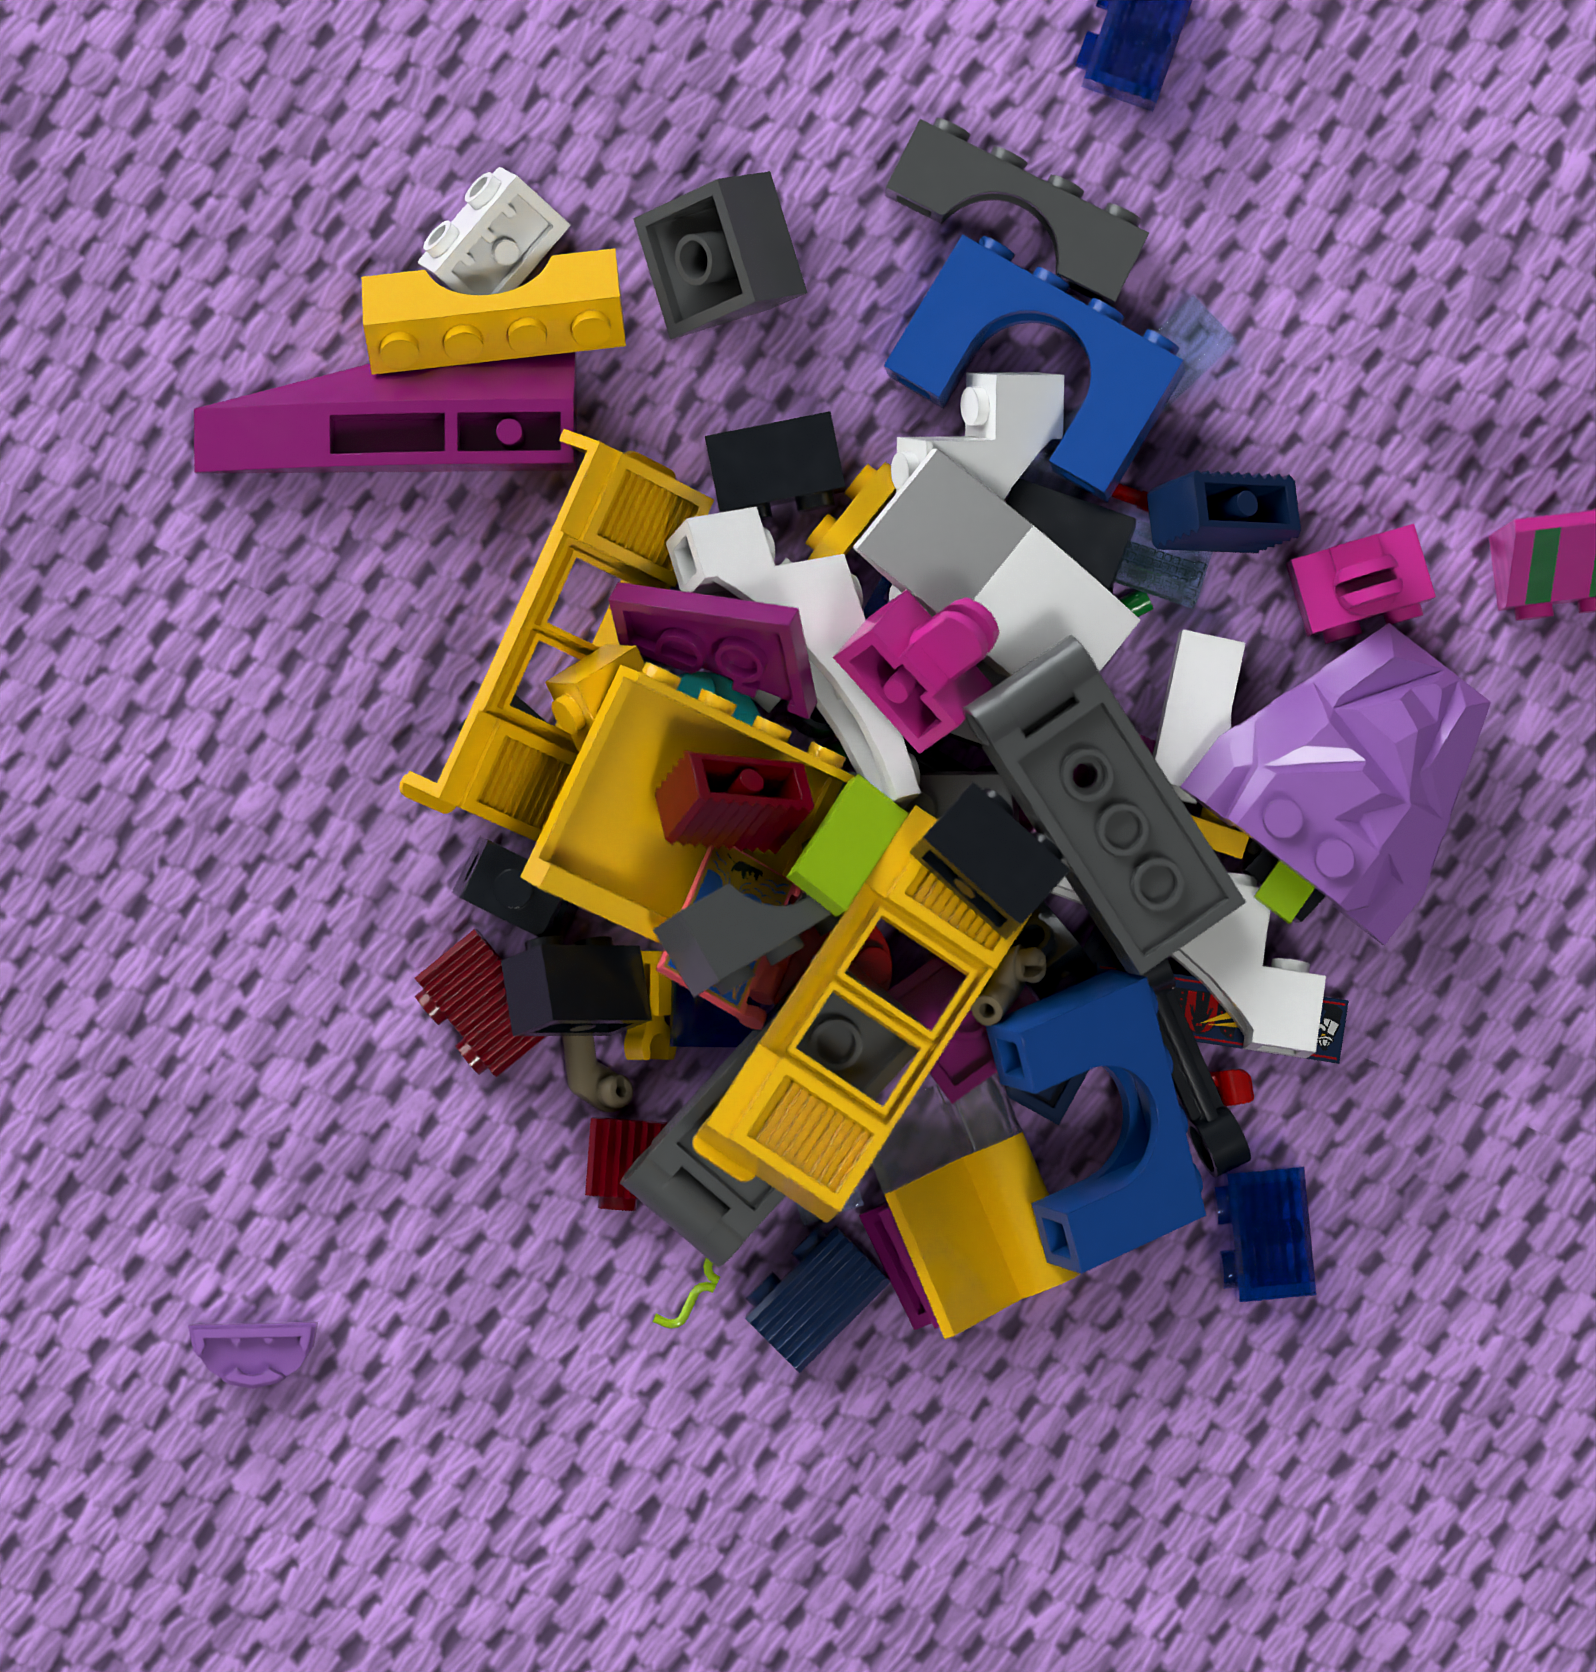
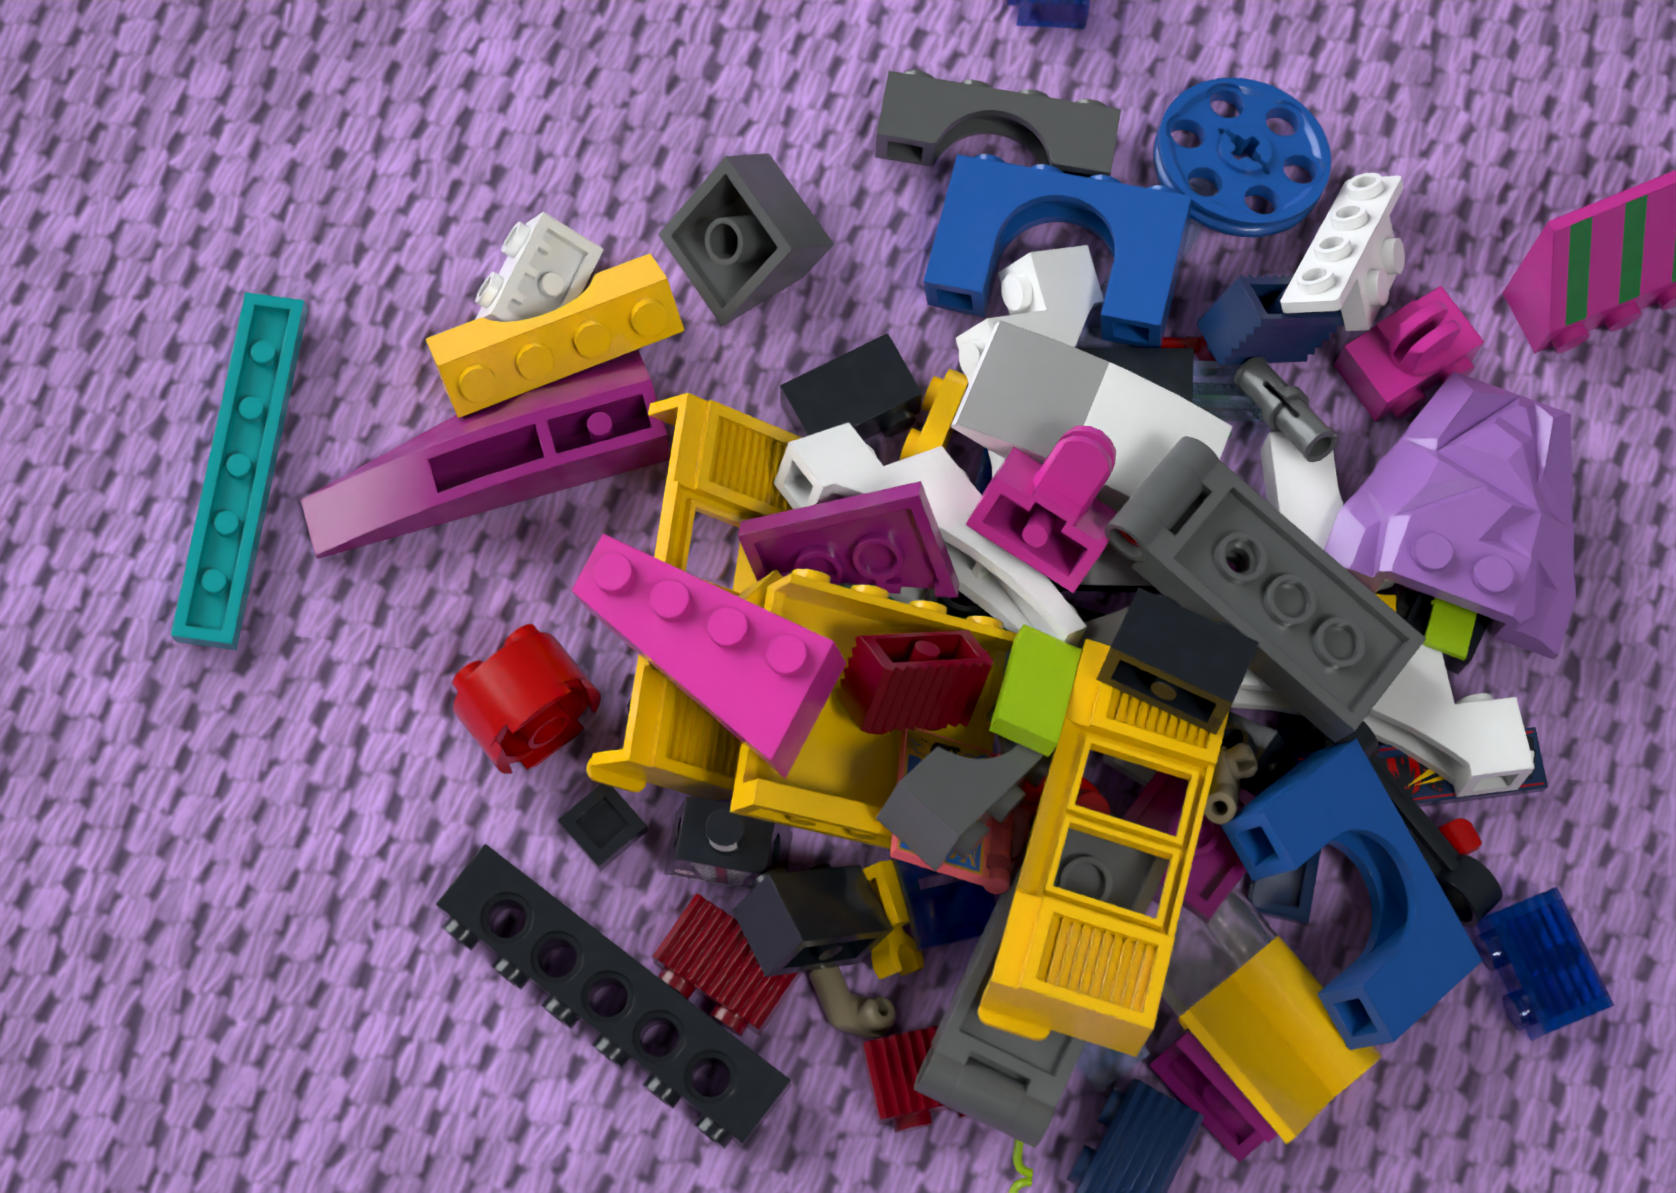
camera: 20 degrees left, 15 degrees down
(142, 358) = (240, 472): none -> teal plate
(286, 859) = (494, 884): none -> black brick
(360, 688) = (524, 699): none -> red brick
(404, 832) = (603, 825): none -> black plate
(551, 733) = (725, 653): none -> dark pink wedge
(1194, 579) = (1285, 409): none -> dark grey pin
(1276, 286) = (1245, 177): none -> blue wedge
(1331, 465) = (1351, 255): none -> white bracket

